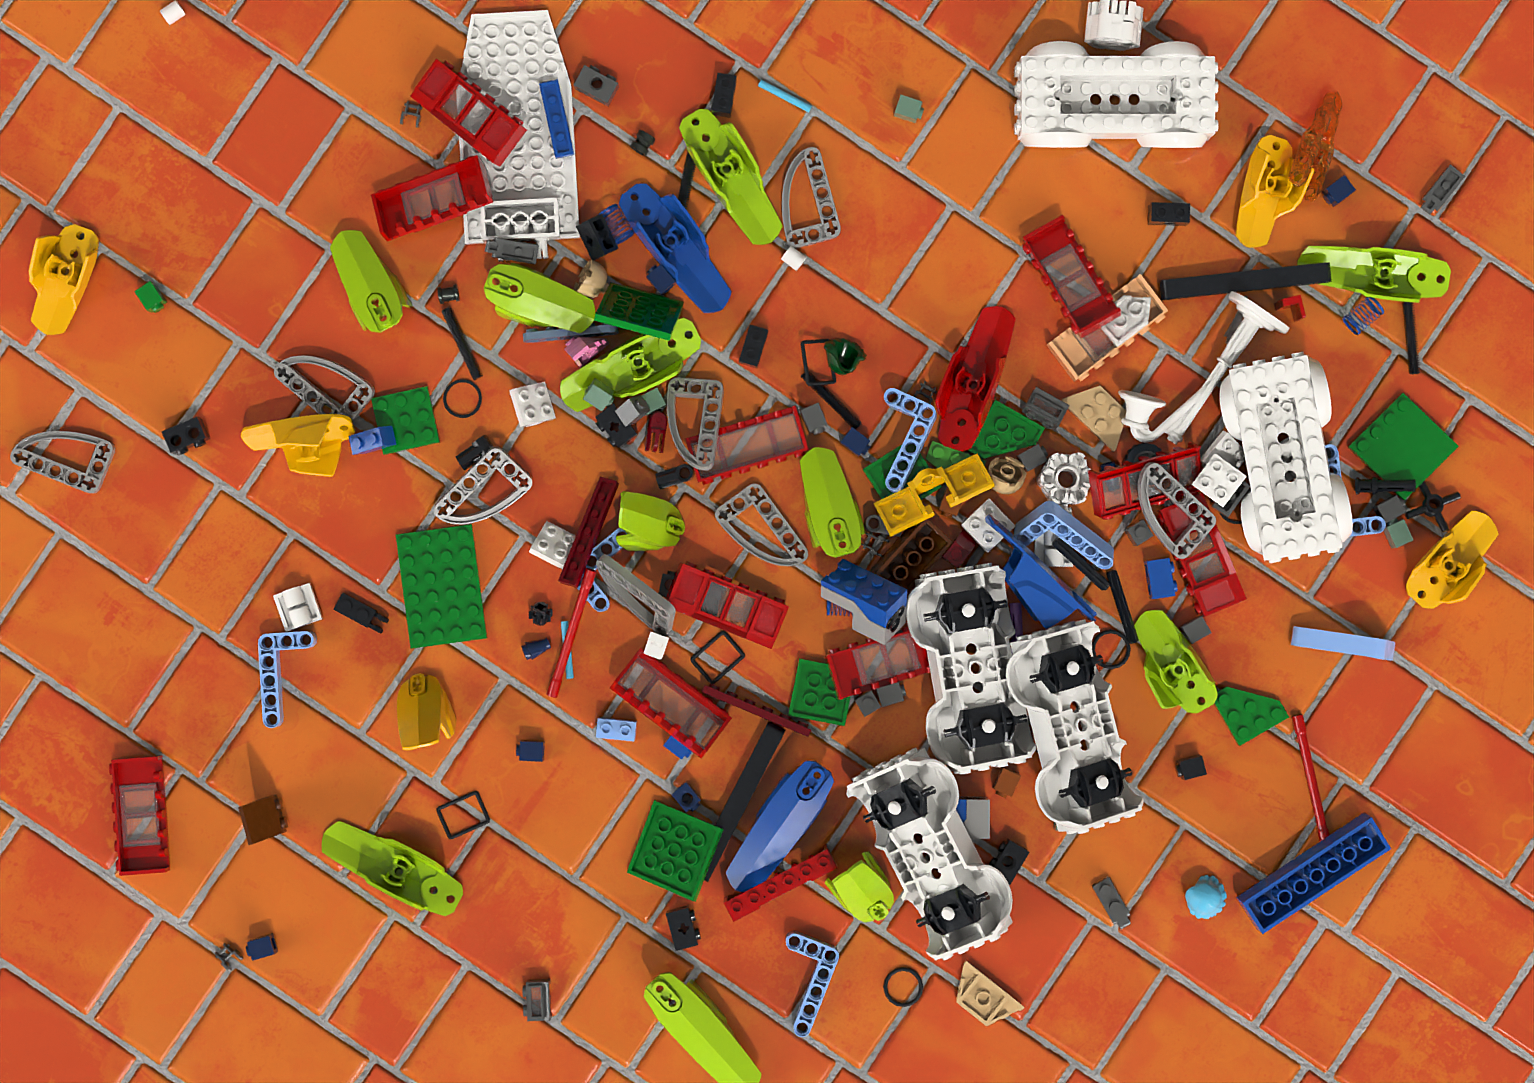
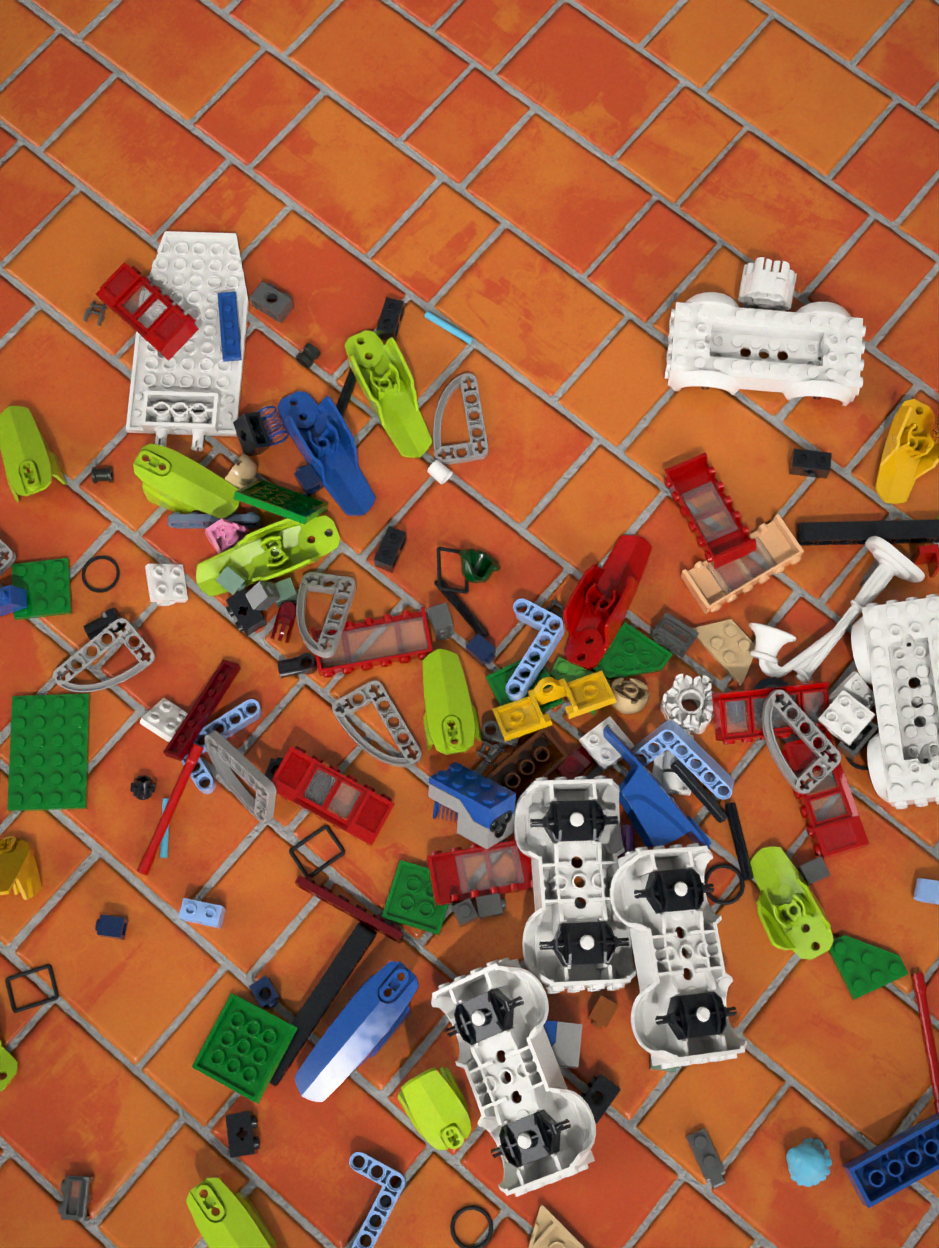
camera: 15 degrees right, 15 degrees down
(432, 198) = (99, 383): red window -> none
(461, 343) = (108, 522): black axle -> none
(512, 250) = (168, 436): dark grey hinge -> none
(535, 648) = (133, 822): dark blue cone -> none
(648, 522) = (262, 702): lime piece -> none
(656, 645) = (255, 828): white slope -> none
(671, 703) = (261, 890): window -> none
(677, 748) = (265, 936): blue brick -> none
(781, 883) = (349, 1094): red window -> none
(908, 109) = (565, 347): sand green brick -> none
(945, 508) = (569, 725): dark orange brick -> none
(1033, 457) = (658, 681): dark grey brick -> none
(1132, 319) = (768, 554): white tile -> none
(1138, 532) = (760, 766): dark grey brick -> none
(1160, 578) = (779, 815): blue brick -> none
(1190, 767) = (800, 1016): black brick -> none

